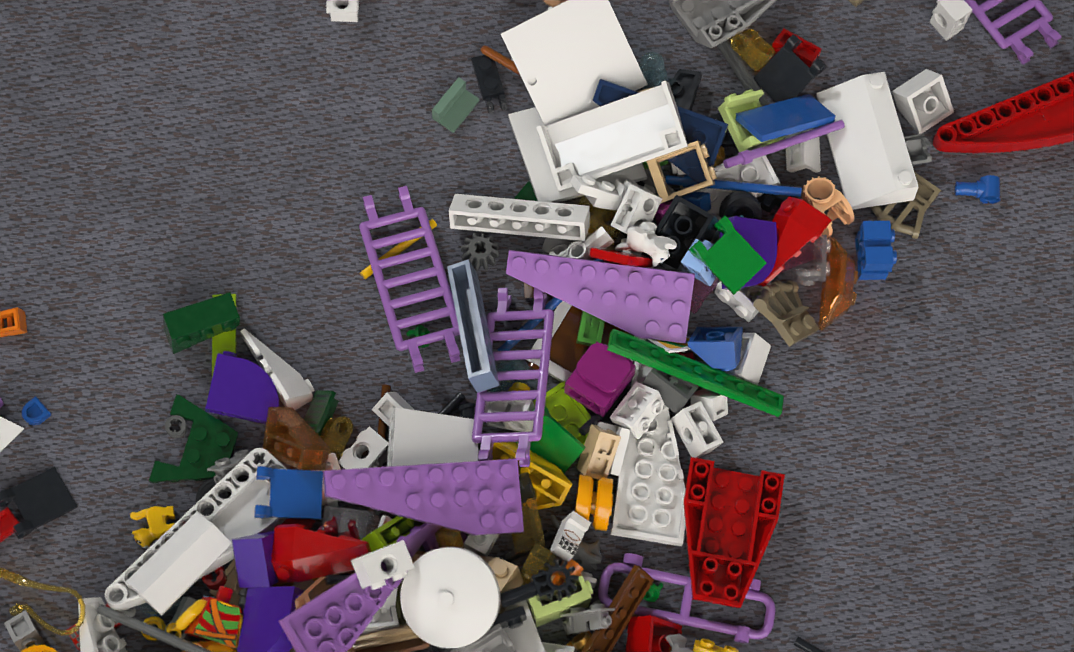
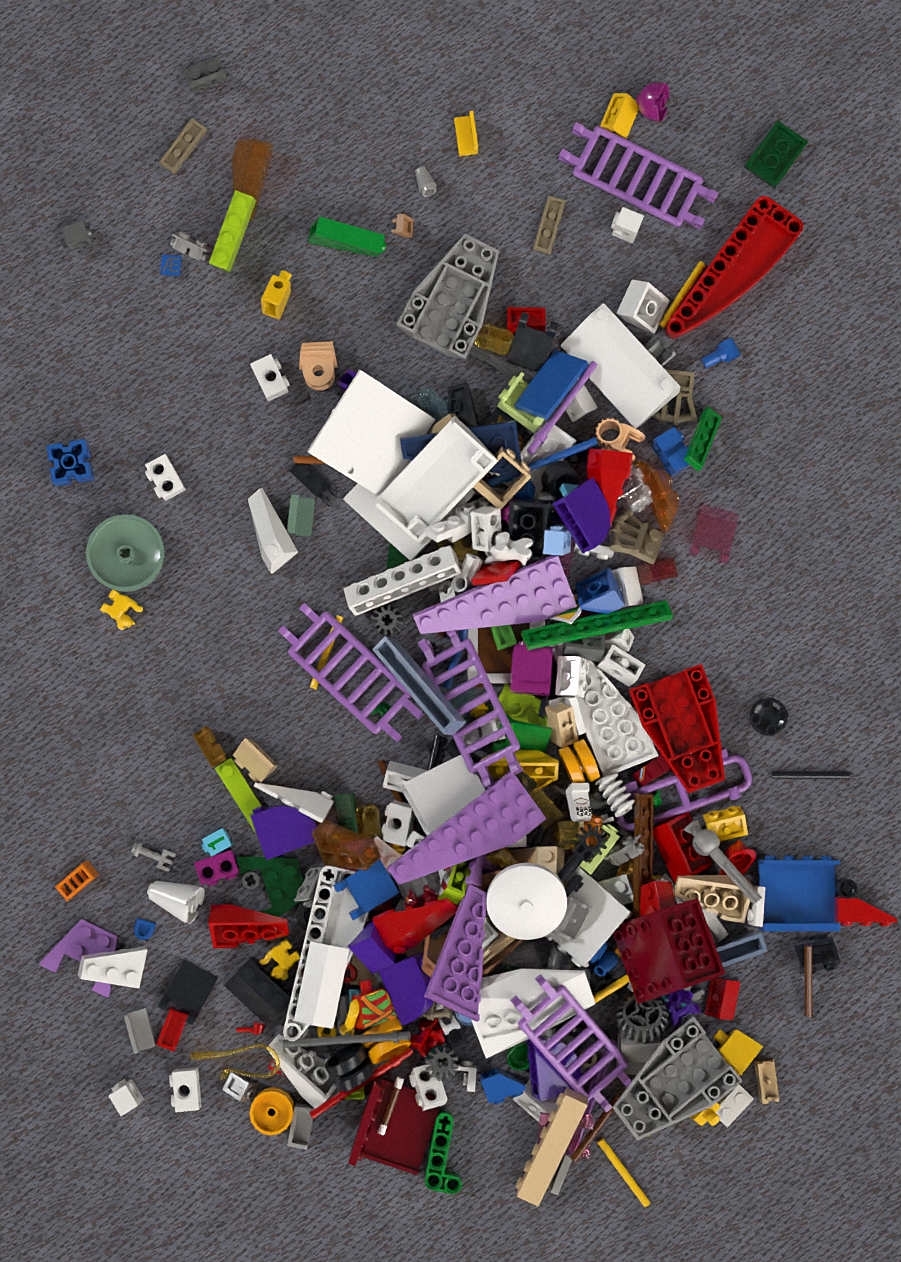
camera: 30 degrees left, 15 degrees up
(82, 328) = (162, 858): none -> light grey hinge
(82, 582) = (257, 1029): none -> red hand
(90, 399) = (177, 899): none -> white cone
(108, 541) = (258, 991): none -> black slope
(134, 463) = (235, 925): none -> red wedge
(152, 387) = (215, 863): none -> magenta brick
(166, 367) = (216, 842): none -> medium azure brick
(200, 321) = (222, 797): dark green wedge -> none
(220, 90) = (118, 609): none -> yellow animal
(220, 274) = (207, 744): none -> pearl gold hinge
(257, 305) = (255, 760): none -> tan slope
(259, 41) = (125, 553): none -> sand green dish
(369, 566) = (460, 917): white brick -> none
(414, 110) = (272, 537): none -> white wedge
(613, 554) = (615, 794): none -> white piece
(667, 558) = (651, 770): none -> dark red leg
(730, 257) = (579, 531): green flag -> none
(791, 361) = (658, 571): none -> clear red slope
(826, 576) = (768, 716): none -> black dish
(875, 356) = (715, 531): none -> clear pink flag
(913, 252) = (702, 438): none -> green tile
(997, 99) = (682, 294): none -> yellow bar

